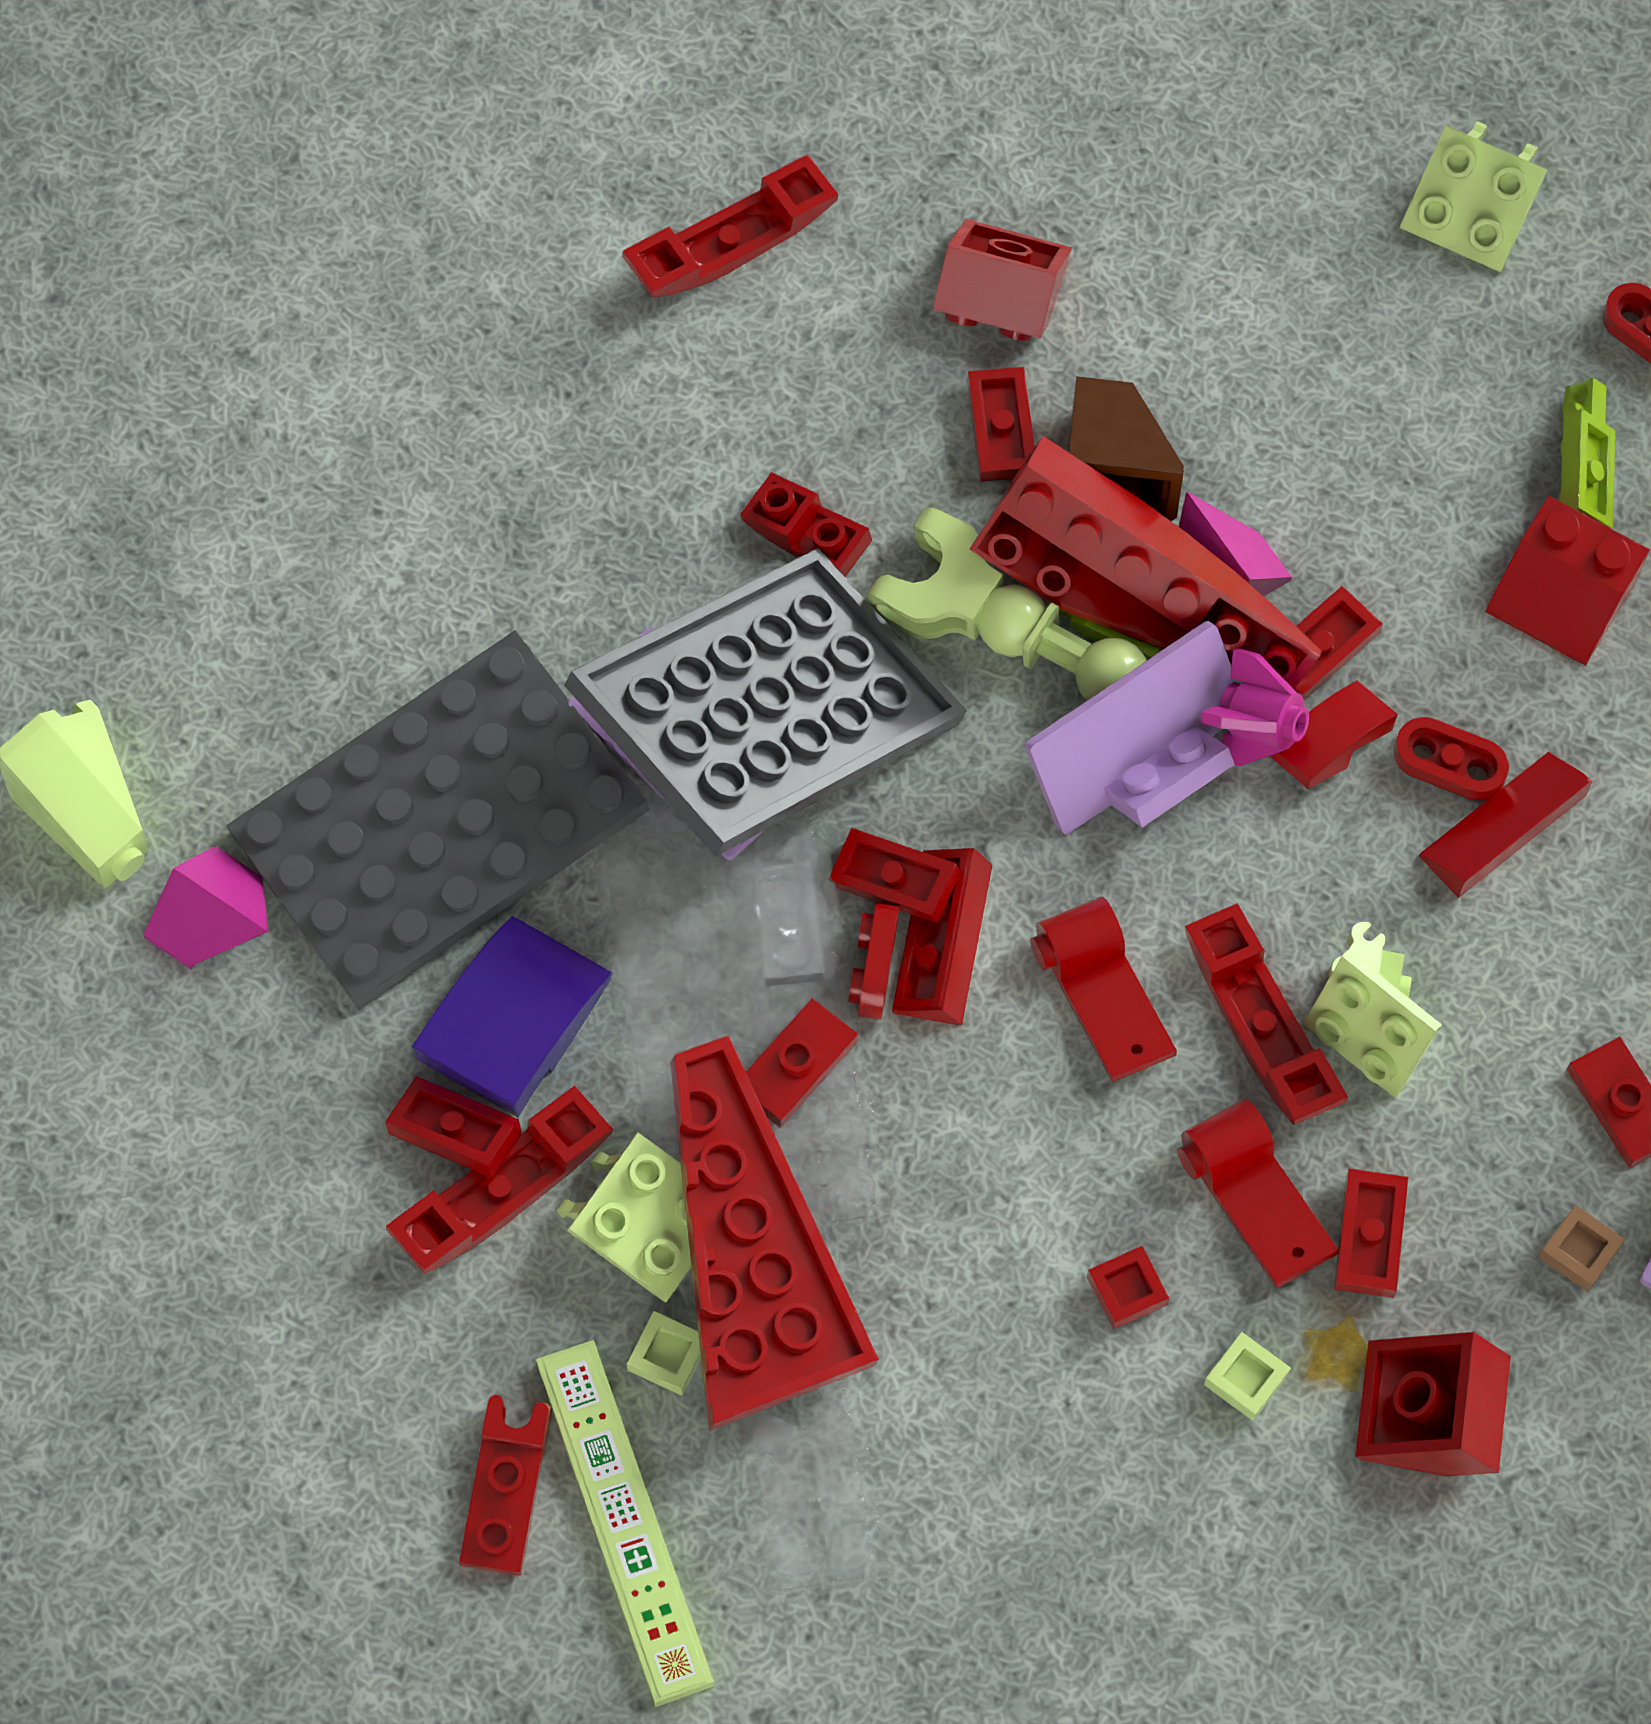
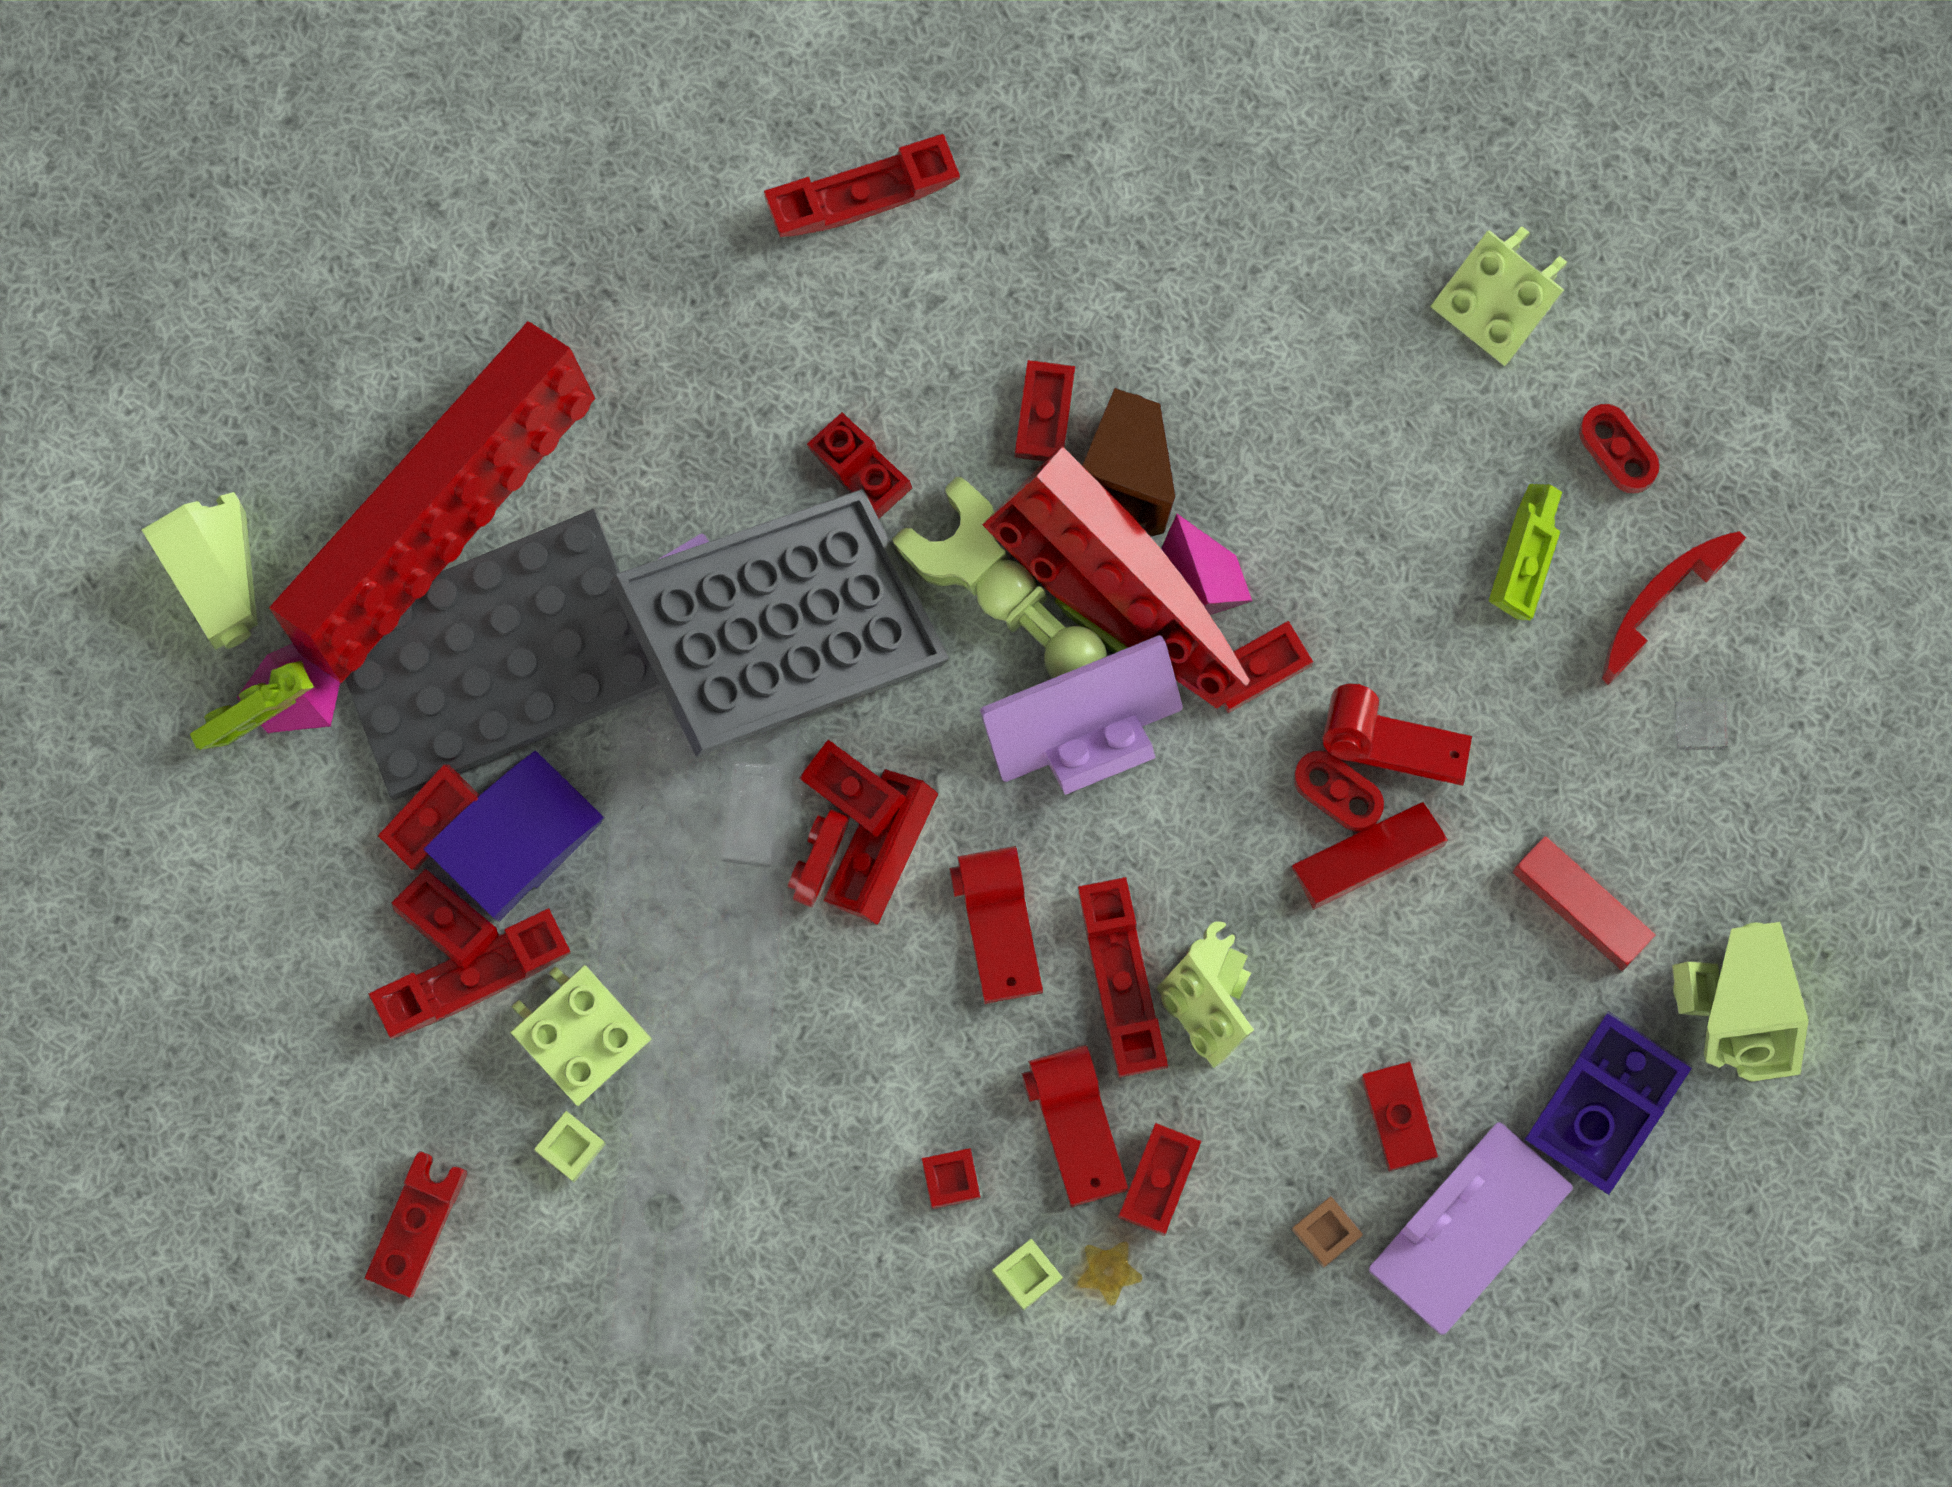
camera: 15 degrees right, 10 degrees up
(173, 931) = (255, 708): none -> lime hinge
(328, 658) = (433, 502): none -> red brick
(404, 1013) = (427, 815): none -> red plate
(624, 1524) = (502, 1275): yellowish green tile -> none
(762, 1276) = (656, 1107): red wing -> none
(799, 1060) = (730, 931): red plate -> none
(1001, 280) = (1078, 281): red slope -> none
(1260, 712) = (1183, 718): dark pink brick -> none
(1334, 731) = (1244, 746): red slope -> none
(1434, 1404) = (1169, 1334): red slope -> none
(1456, 692) = (1362, 736): none -> red door
(1567, 580) = (1478, 659): red slope -> none

